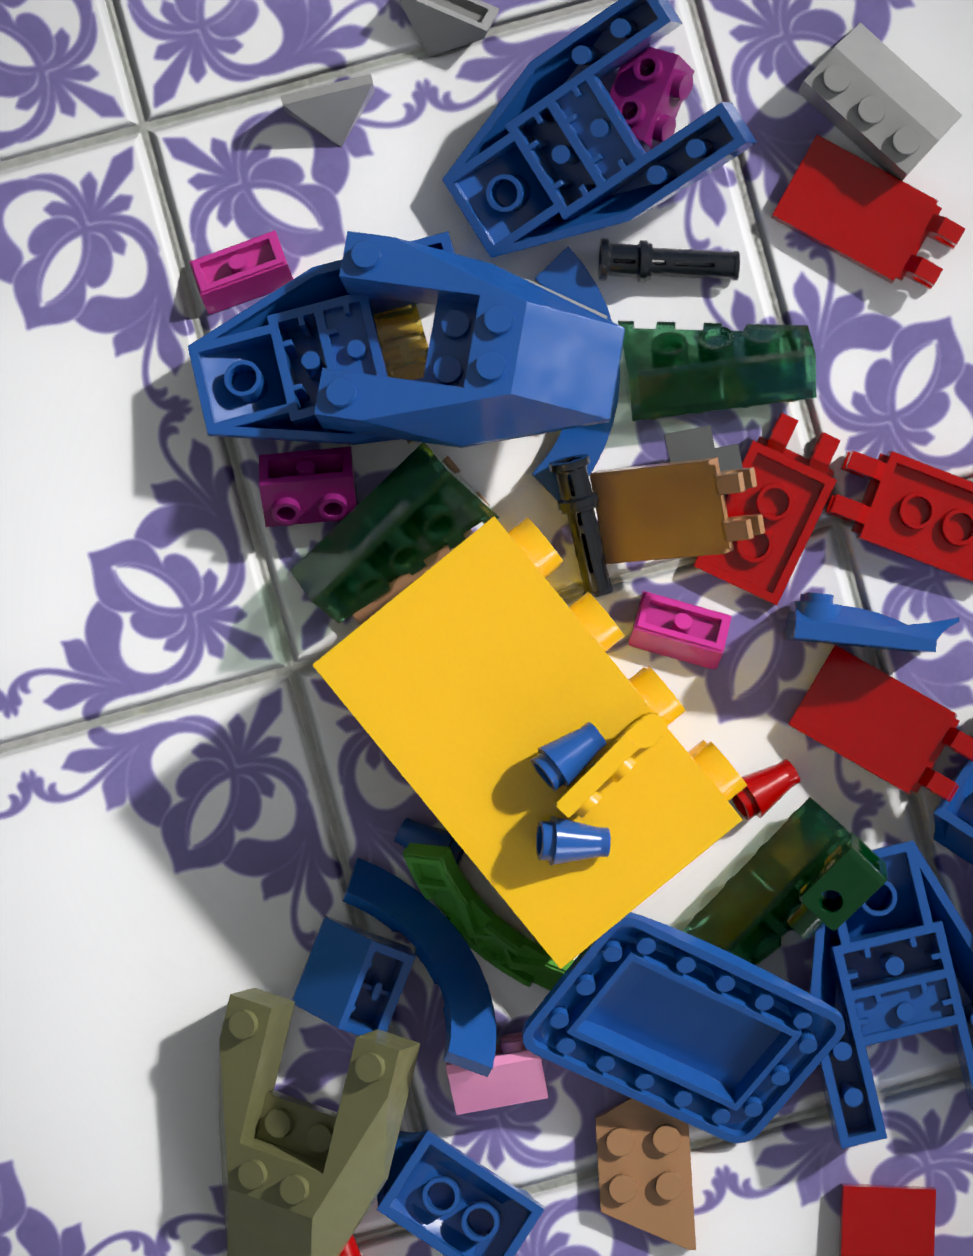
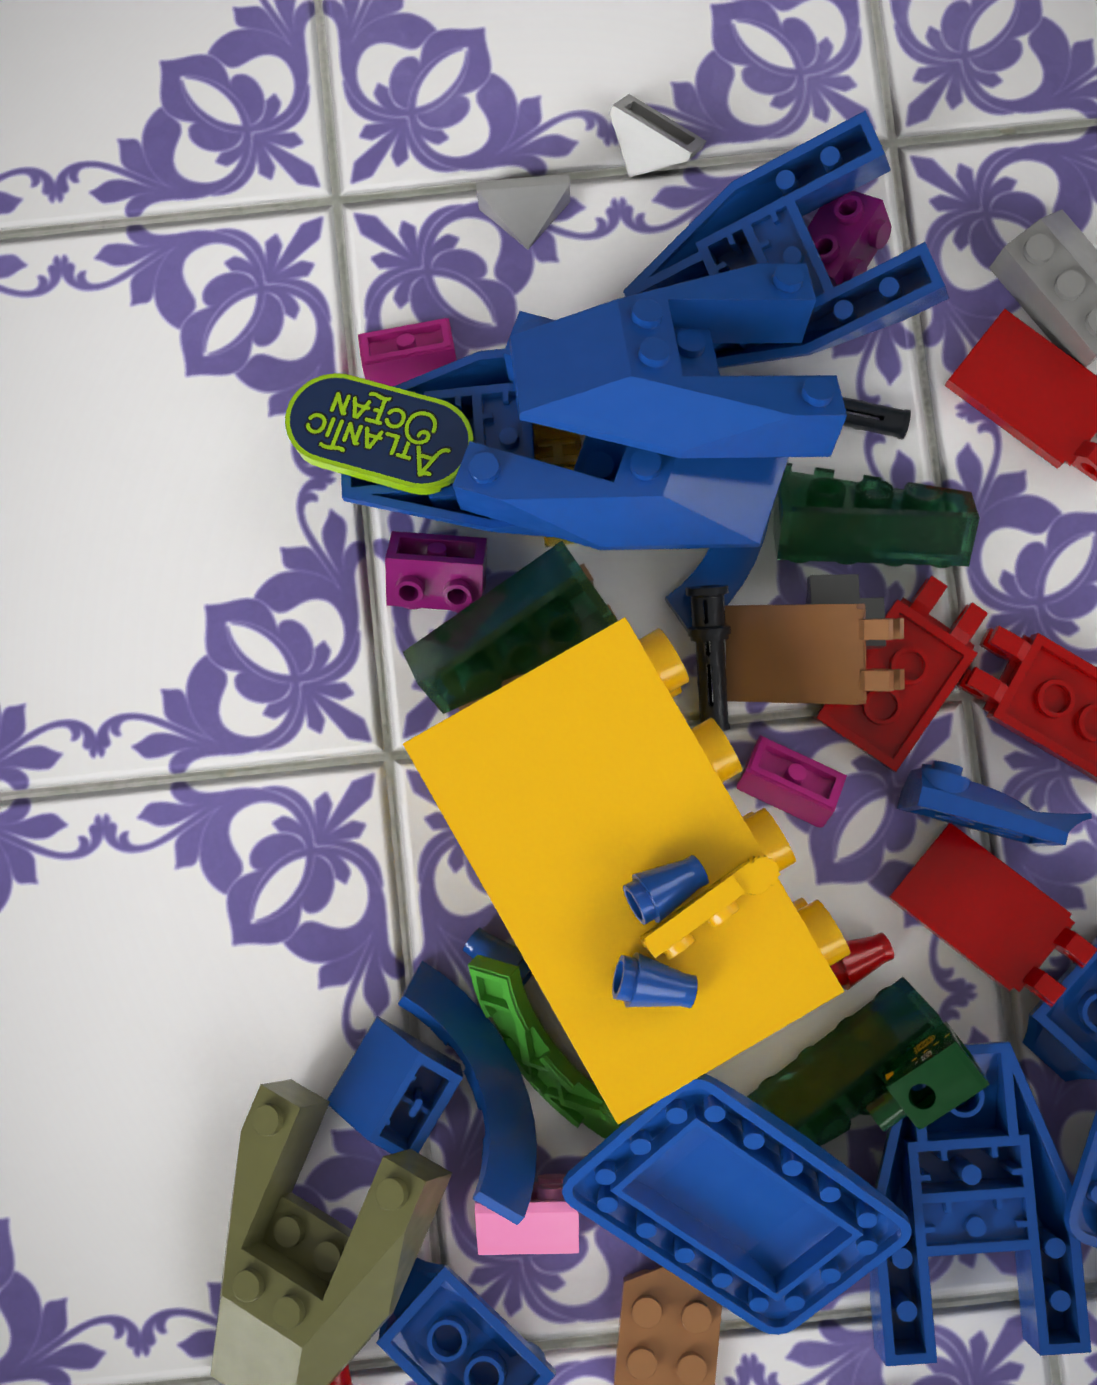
camera: 15 degrees right, 5 degrees down
(232, 366) = (378, 433): none -> tile
(479, 280) = (651, 378): none -> blue wedge

